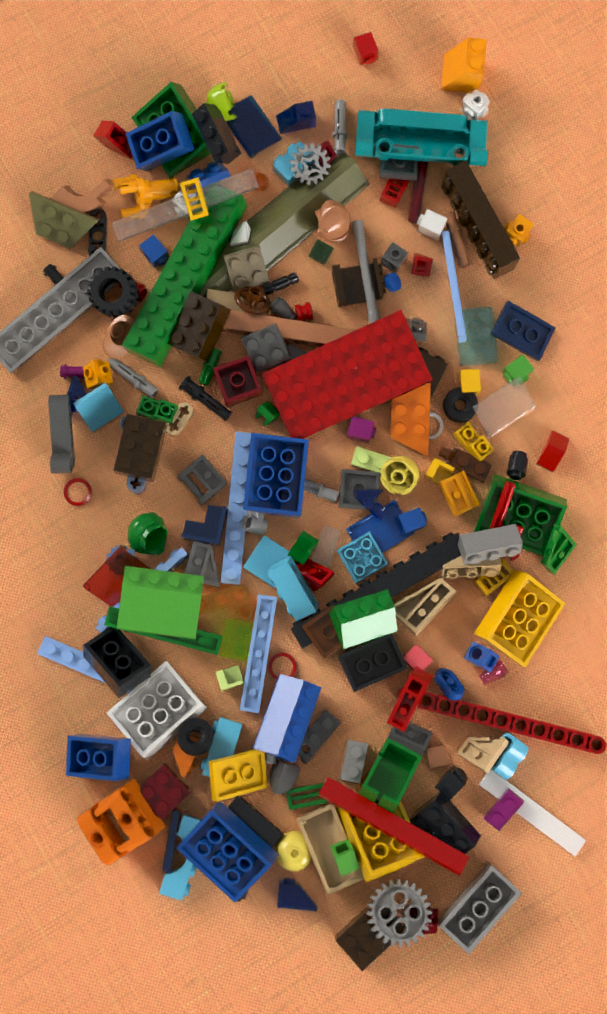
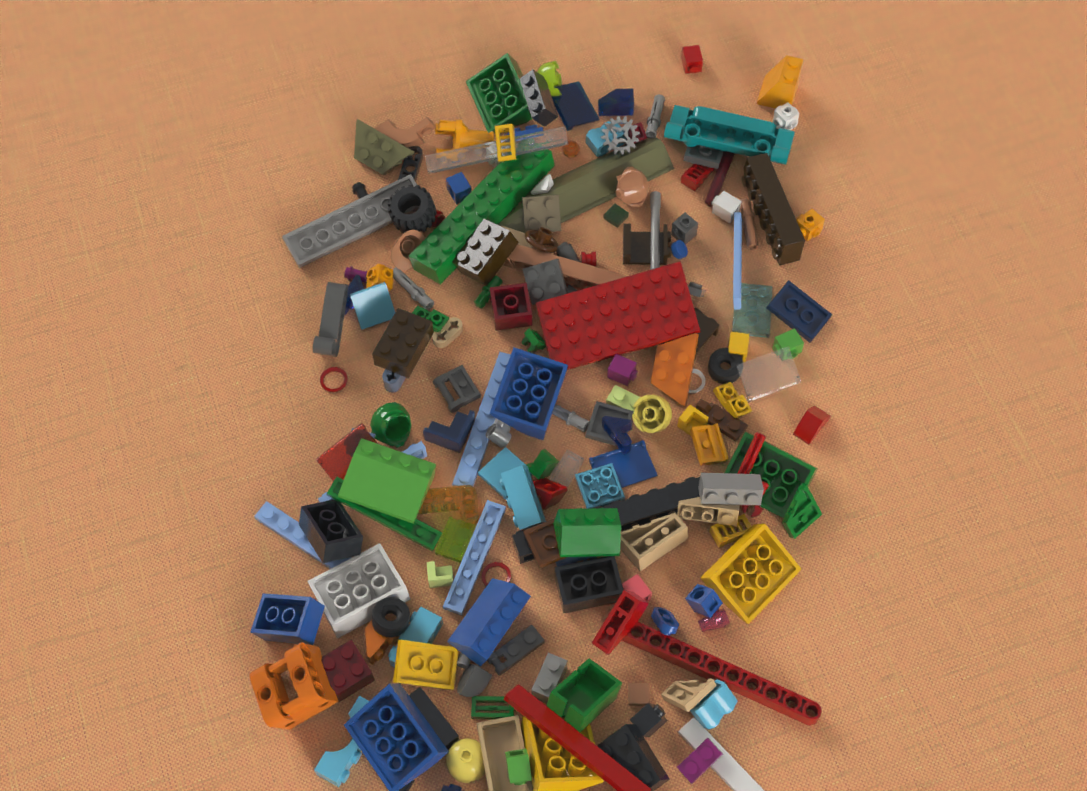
camera: 20 degrees right, 20 degrees down
(114, 138) = (447, 94): red slope -> none
(159, 141) = (485, 97): blue brick -> none
(171, 841) = (338, 728): dark blue tile -> none
(196, 394) = (471, 313): black pin -> none
(202, 563) = (441, 456): flat silver wing -> none
(280, 283) = (572, 234): black axle -> none
(411, 521) = (655, 460): blue brick -> none
(413, 738) = (617, 666): dark grey plate -> none
(421, 265) = (710, 241): red slope -> none
(517, 465) = (773, 427): black brick -> none

